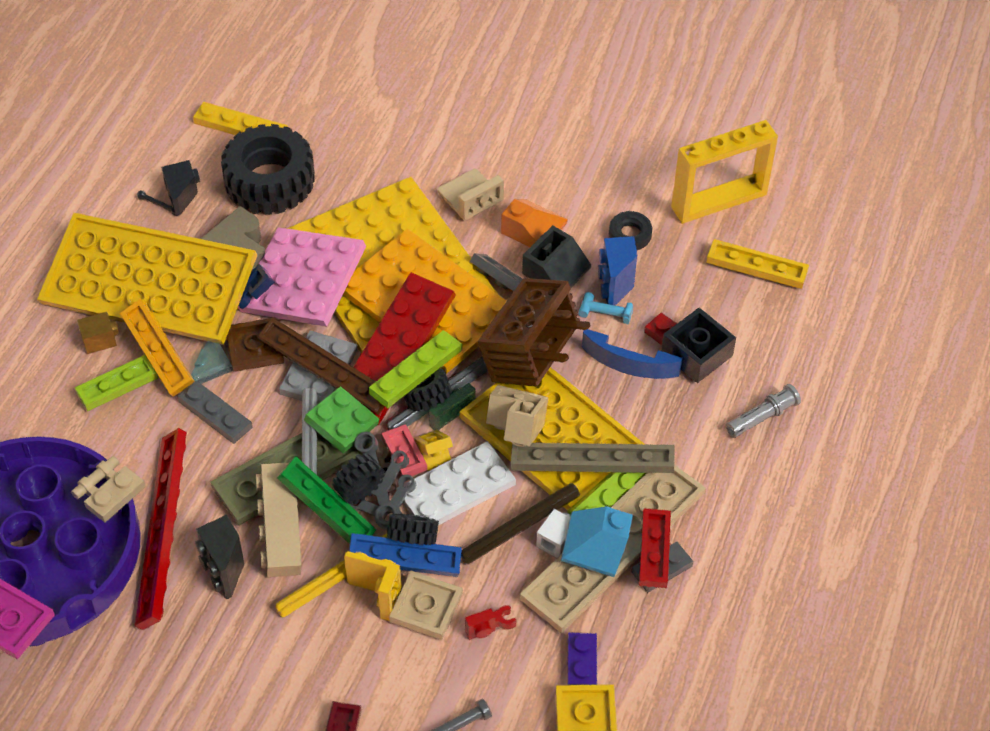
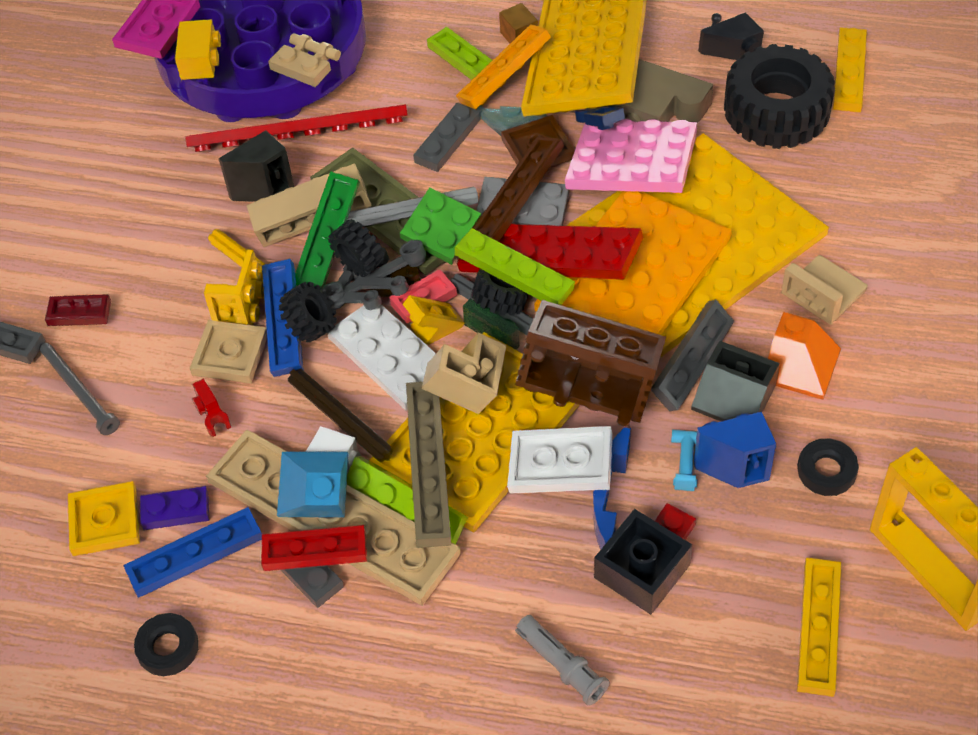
camera: 85 degrees right, 0 degrees up
(61, 577) = (197, 49): none -> yellow brick
(608, 373) = (560, 460): none -> white plate
(632, 646) = (193, 552): none -> blue plate
(711, 688) = (176, 661): none -> black tyre

